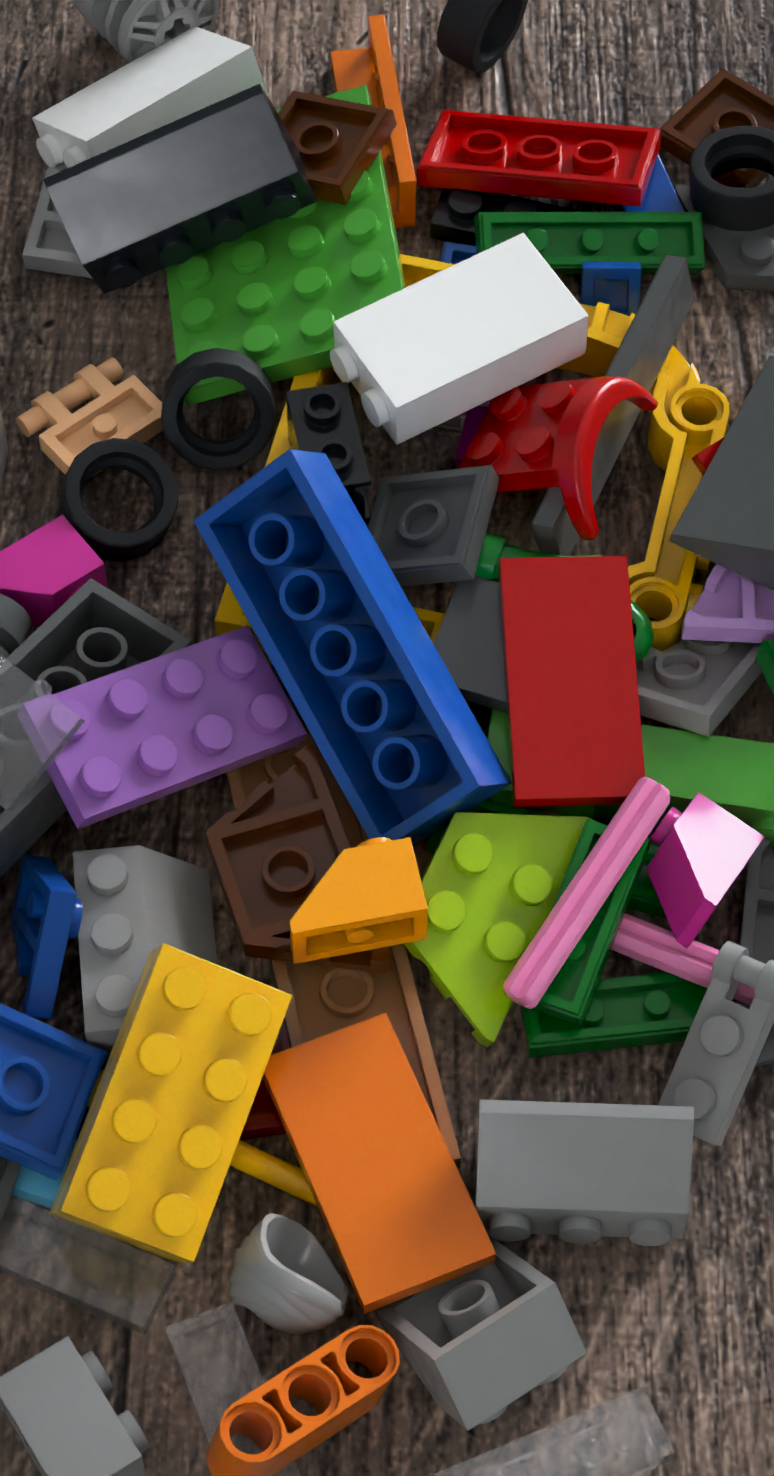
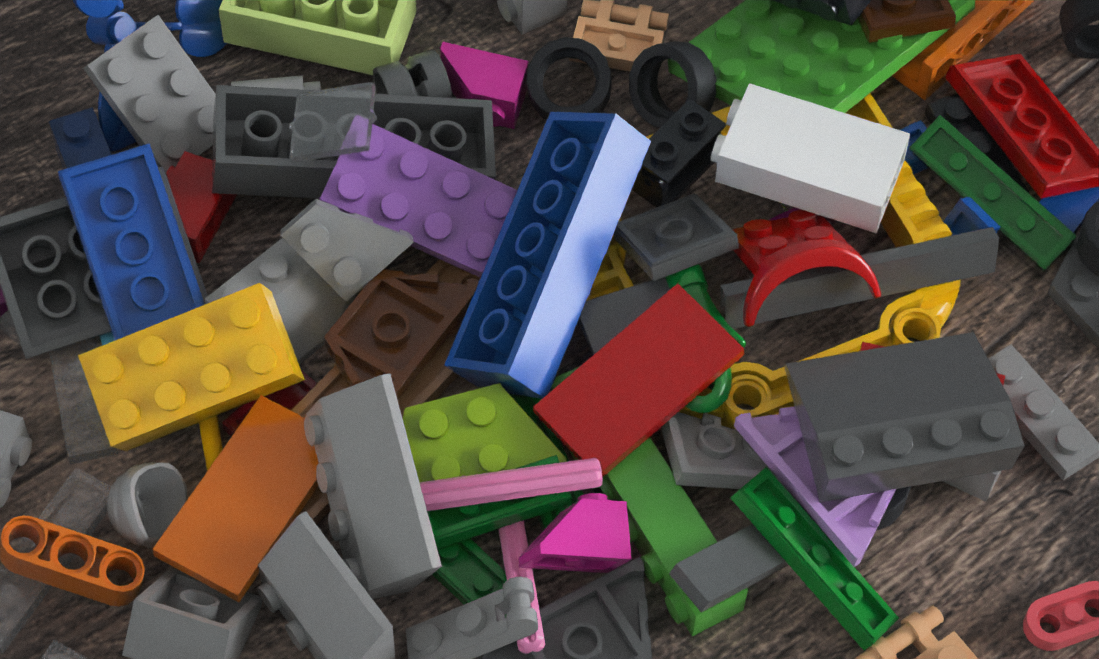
camera: 50 degrees right, 0 degrees up
(42, 921) = (254, 237): blue wing -> none
(159, 839) = (343, 246): none -> light grey wing
(362, 903) = (413, 367): light orange slope -> none
(488, 1011) = (372, 487): none -> light grey slope

